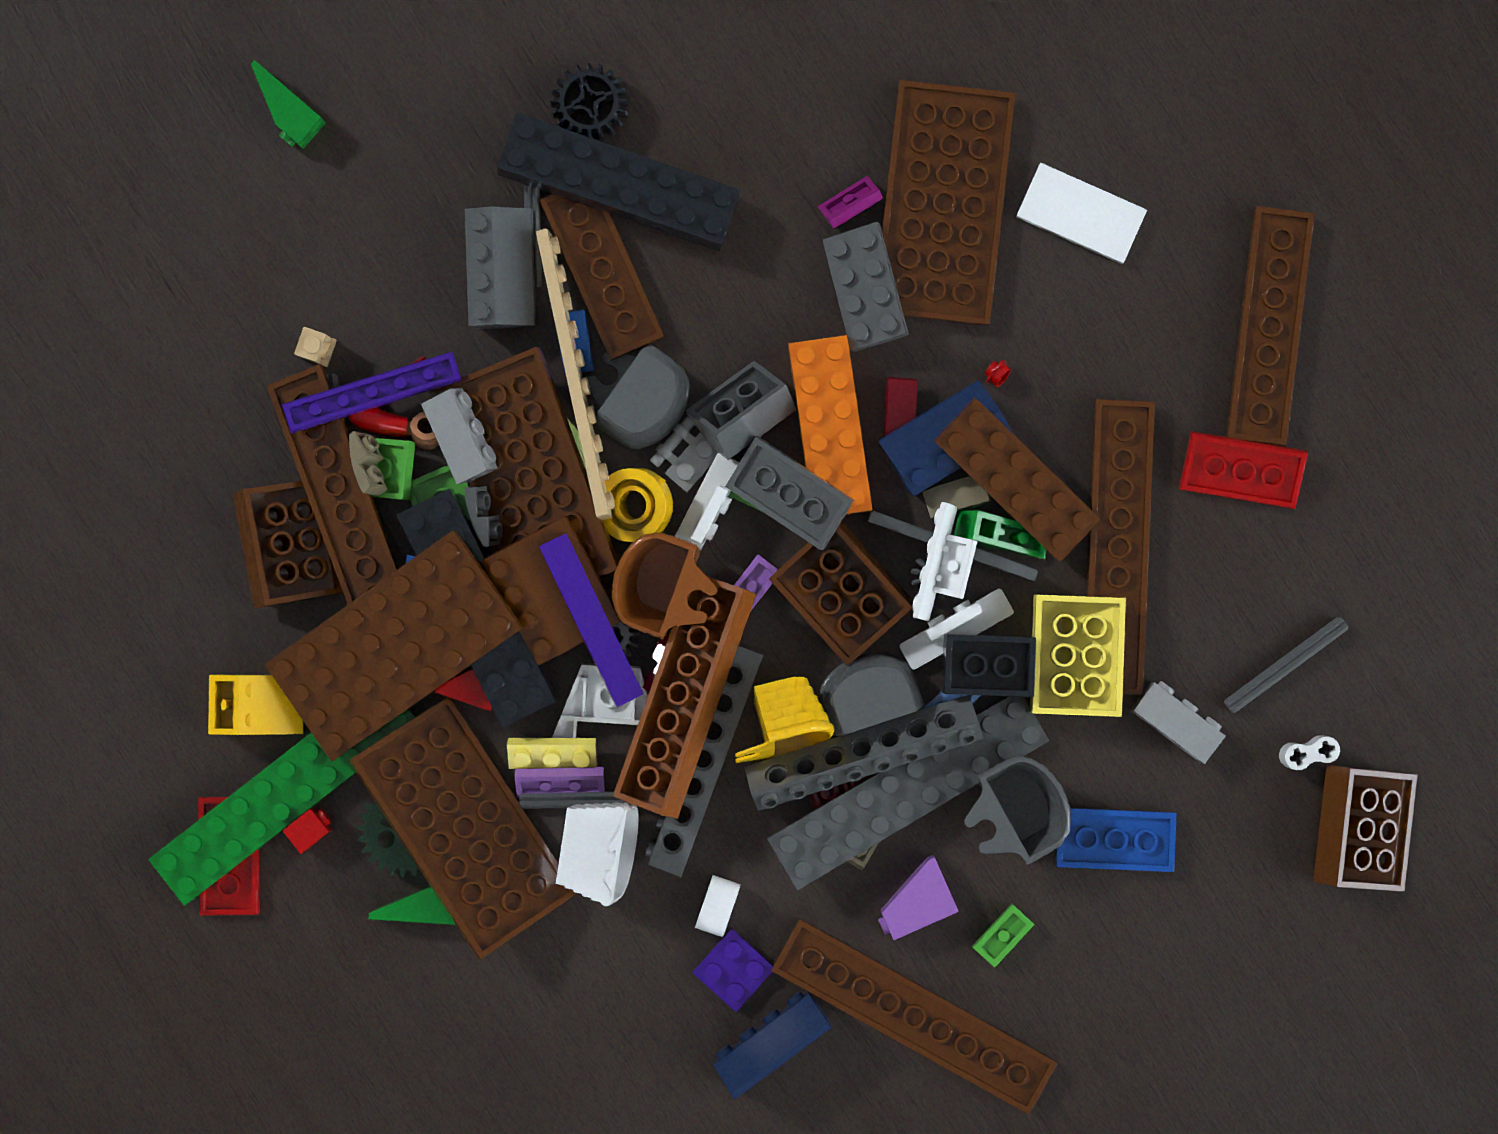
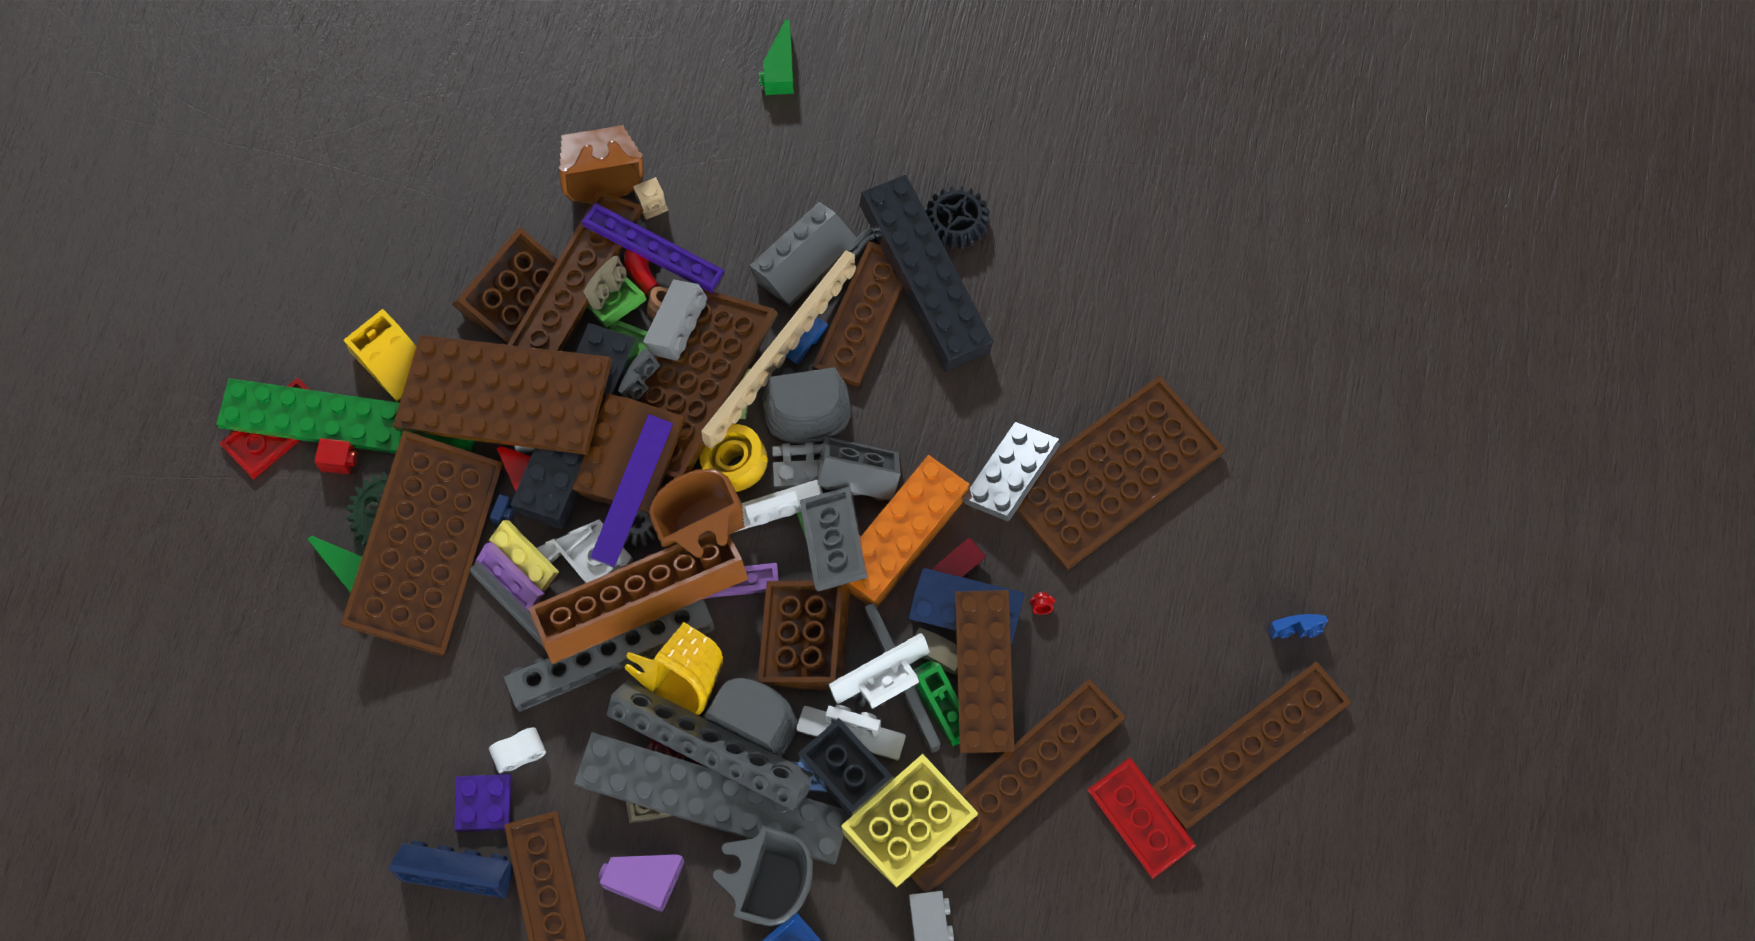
camera: 45 degrees right, 20 degrees down
(241, 362) = (599, 162): none -> dark orange piece
(495, 735) = (501, 510): none -> dark blue plate
(598, 850) = (486, 636): white piece -> none
(850, 202) = (1062, 418): magenta plate -> none
(1081, 213) = (1196, 561): white tile -> none
(1218, 185) = (1304, 624): none -> blue slope

